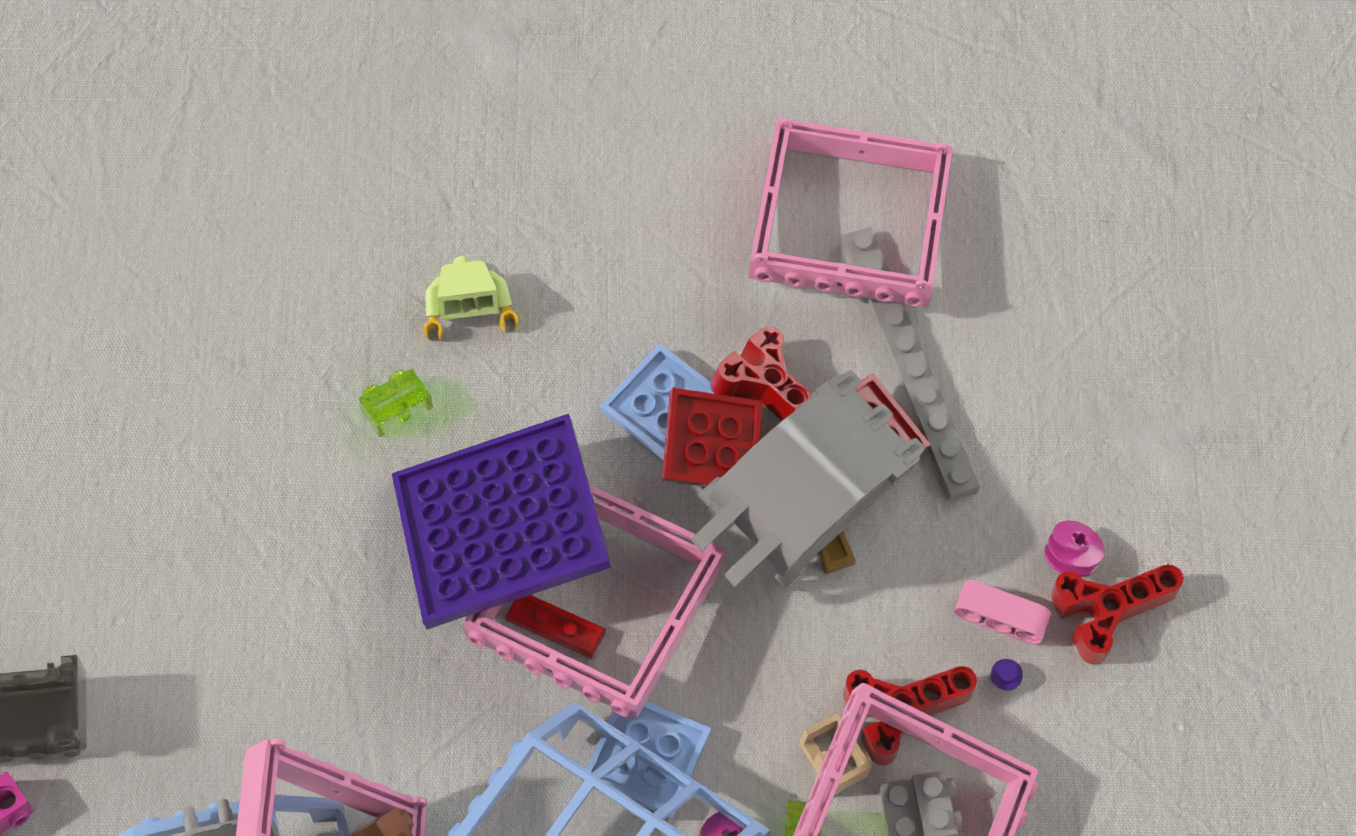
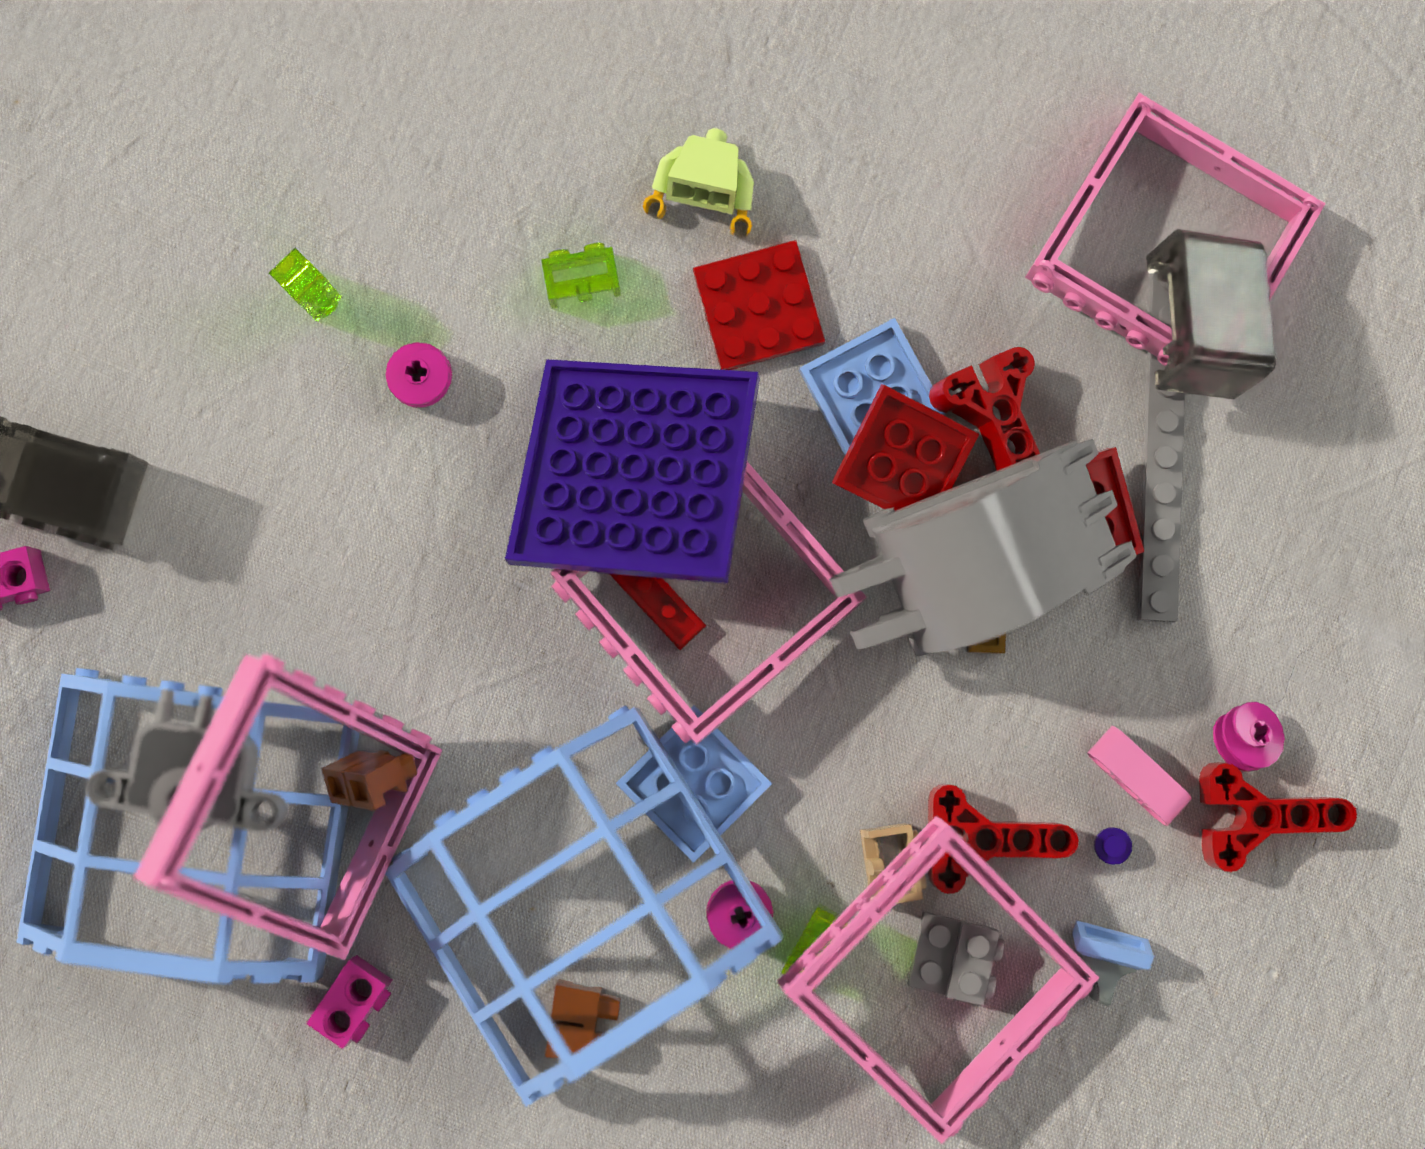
camera: 25 degrees right, 20 degrees up
(172, 483) = (306, 285): none -> clear neon green brick
(295, 535) = (408, 361): none -> dark pink piece
(547, 373) = (758, 306): none -> red plate
(905, 245) = (1216, 313): none -> clear smoke windscreen
(1047, 758) = (1110, 956): none -> light blue piece

